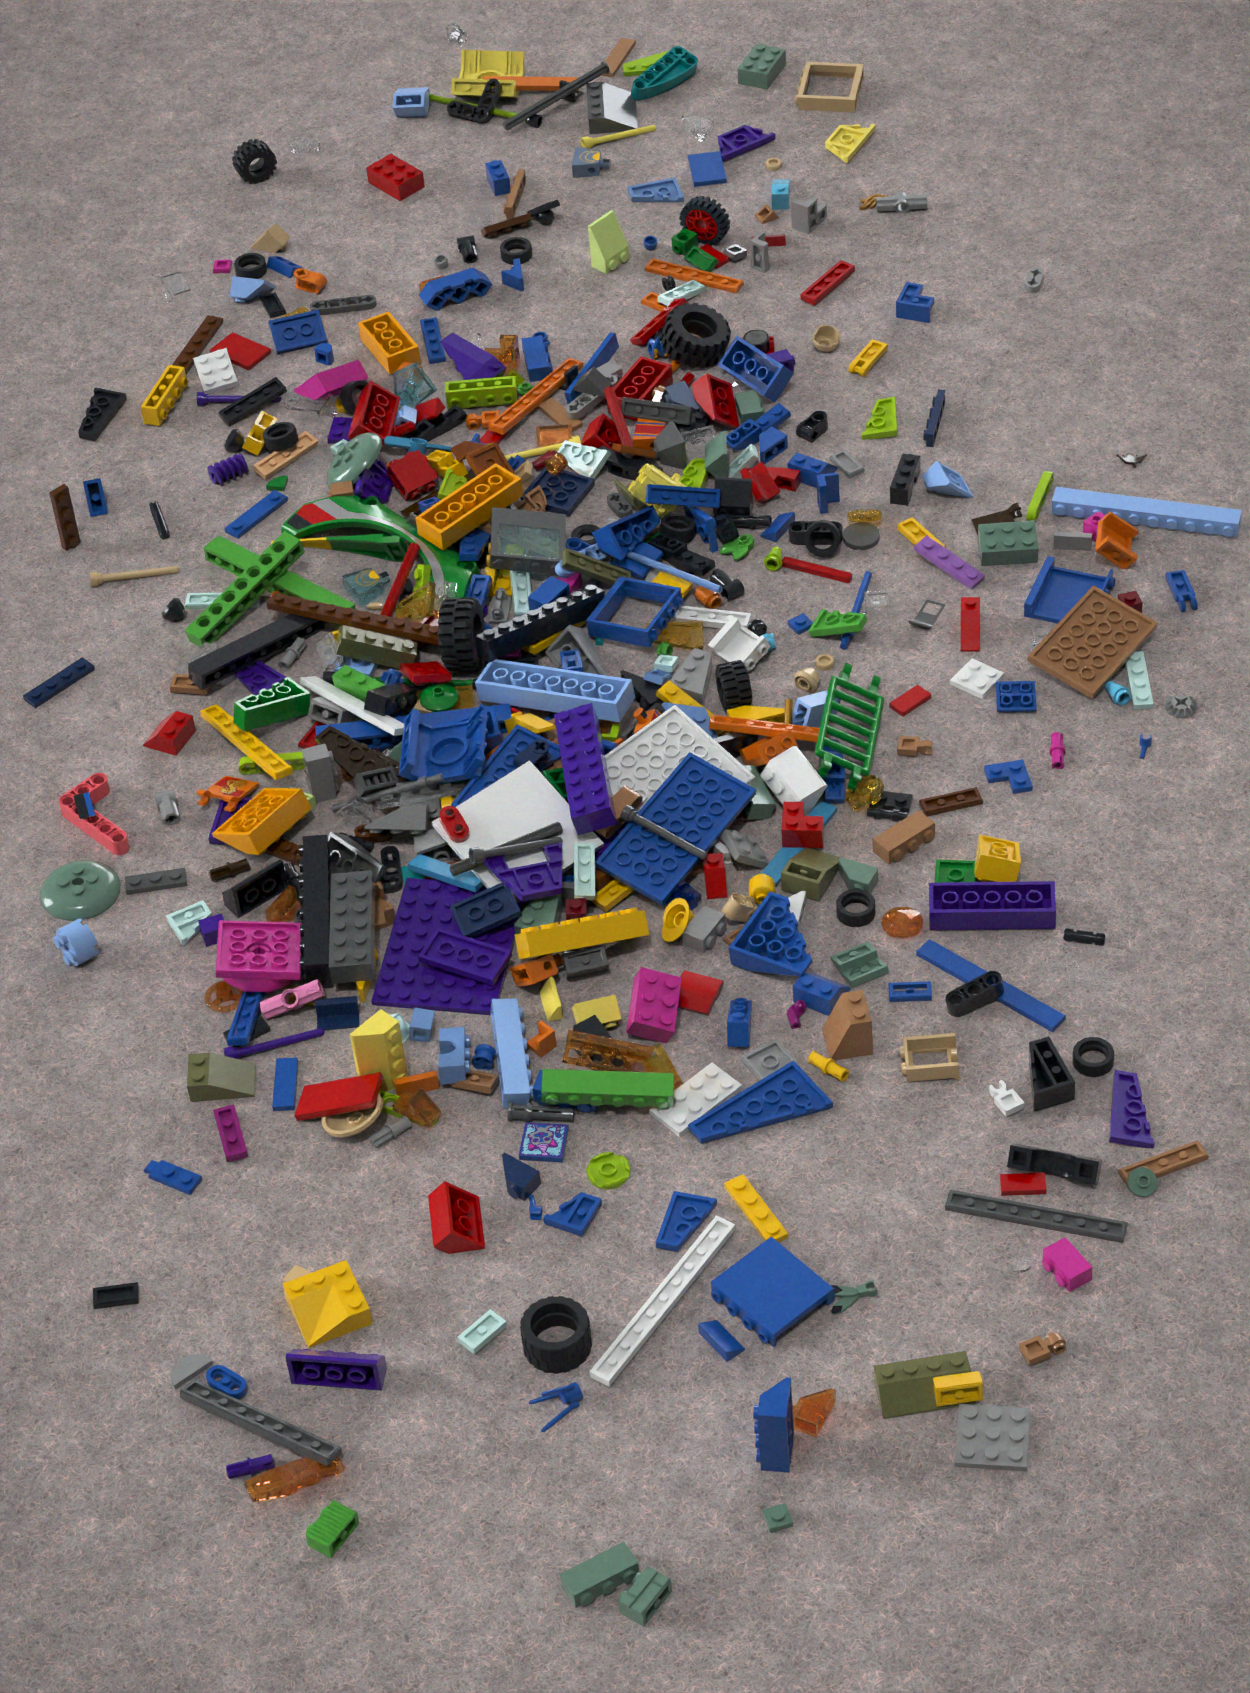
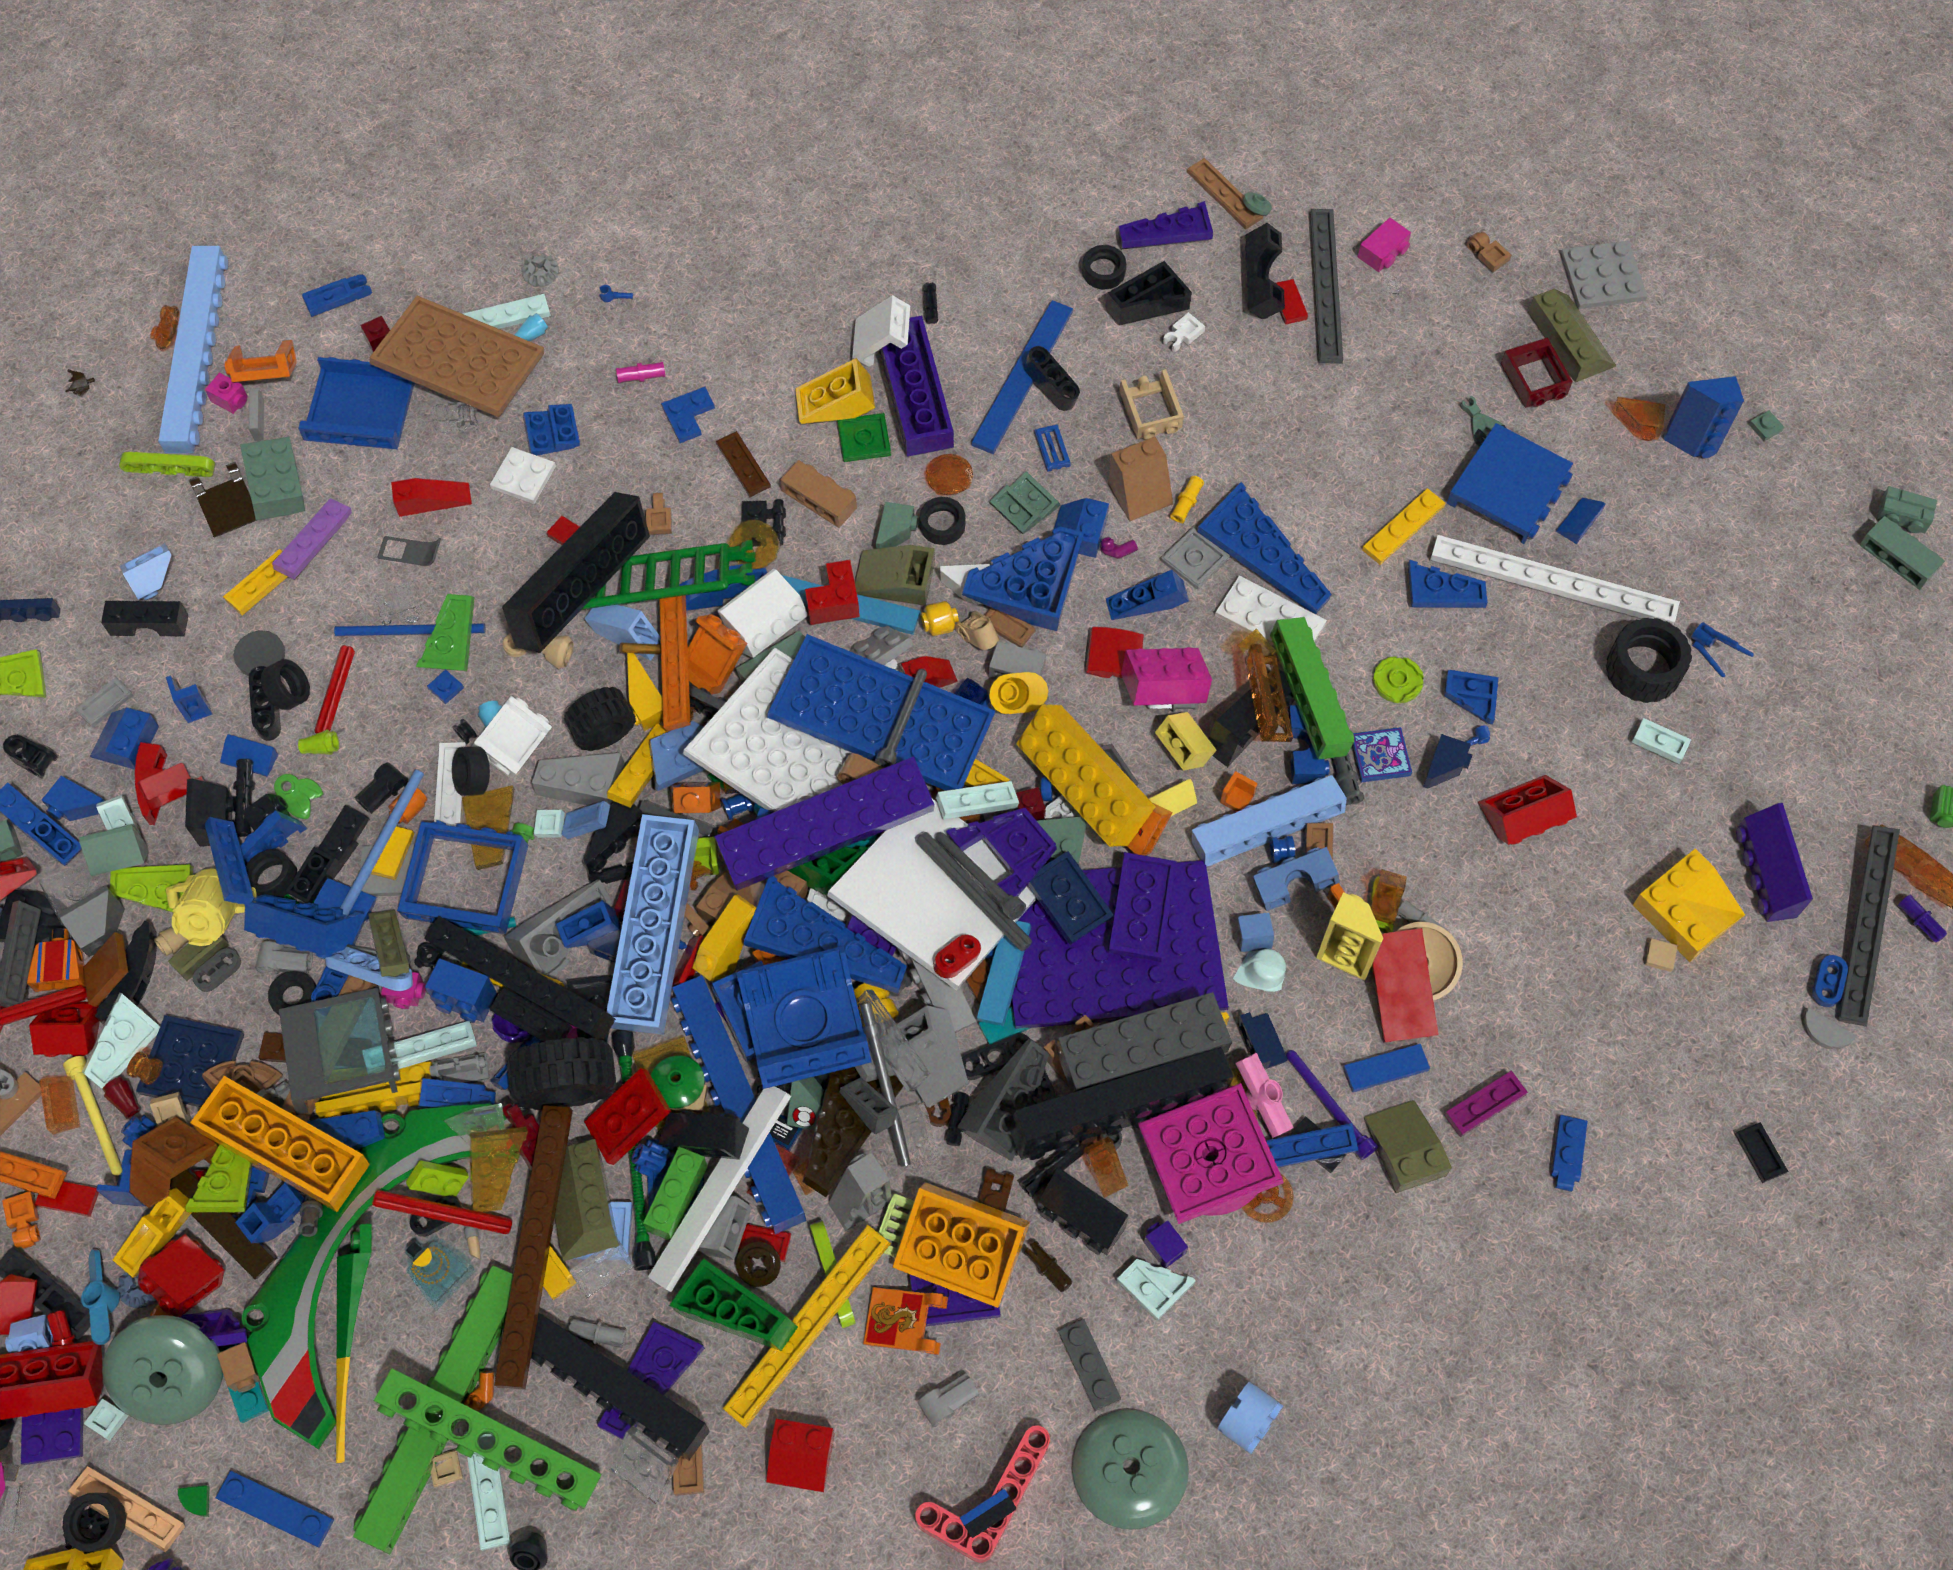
camera: 110 degrees left, 20 degrees up
(300, 728) = (745, 1264): none -> dark brown gear
(536, 752) = (806, 902): dark blue piece -> none
(712, 616) = (470, 771): none -> black tyre
(853, 672) = (576, 572): none -> black brick
(864, 516) = (223, 653): clear yellow wheel -> none
(881, 1328) = (1530, 353): none -> dark red window
(958, 1388) = (1573, 299): yellow slope -> none
(1048, 885) = (879, 327): none -> white panel
(1167, 496) = (167, 327): none -> clear orange dish

